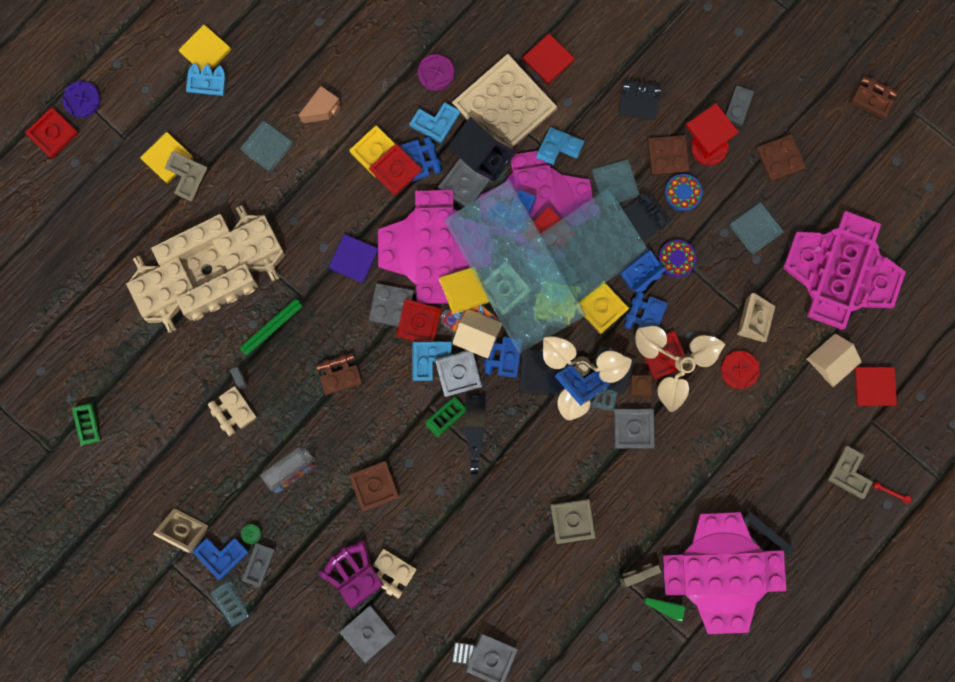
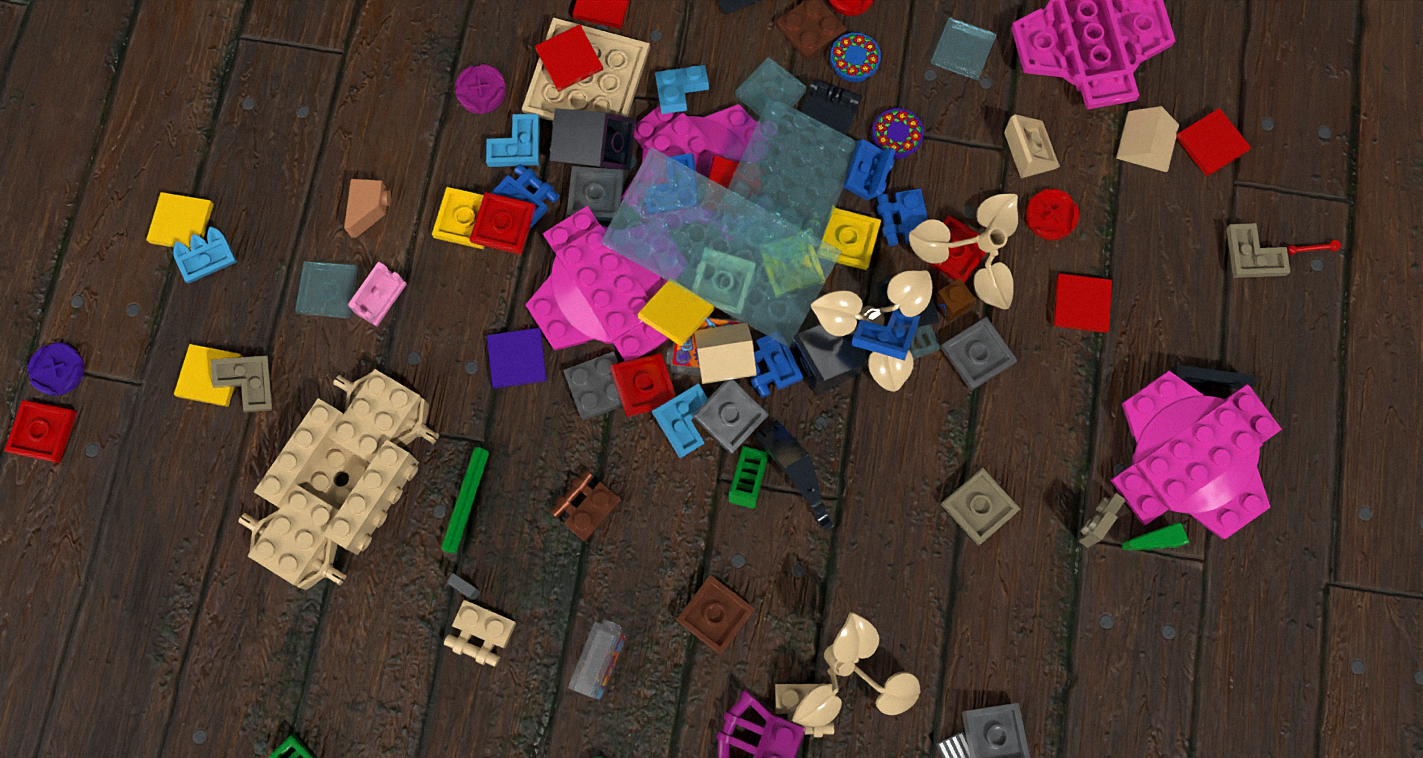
camera: 30 degrees left, 5 degrees down
(294, 168) = (377, 294): none -> bright pink hinge
(436, 553) = (854, 641): none -> tan plant
(500, 86) = (569, 58): none -> red tile
(720, 437) = (1082, 303): none -> red tile

